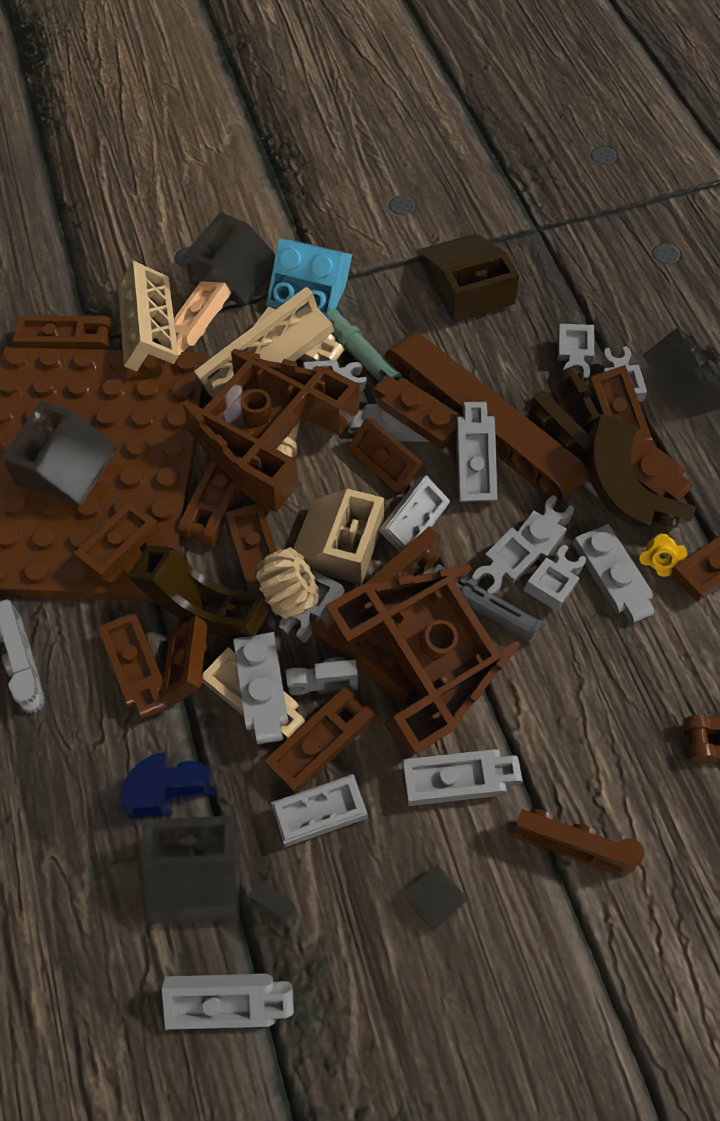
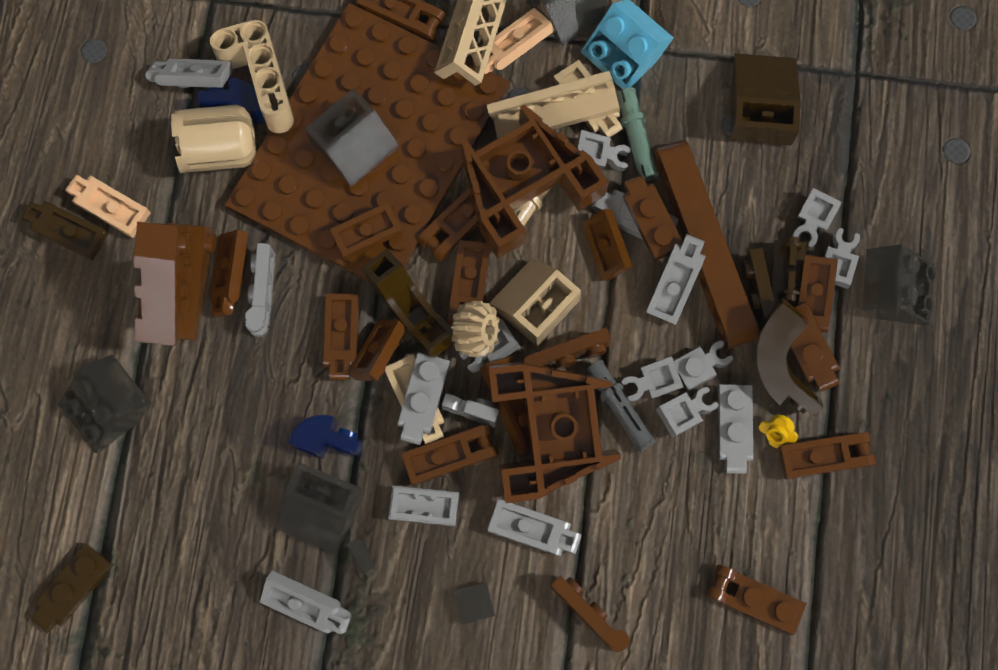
camera: 25 degrees right, 15 degrees up
(414, 513) = (604, 308): light grey plate -> none

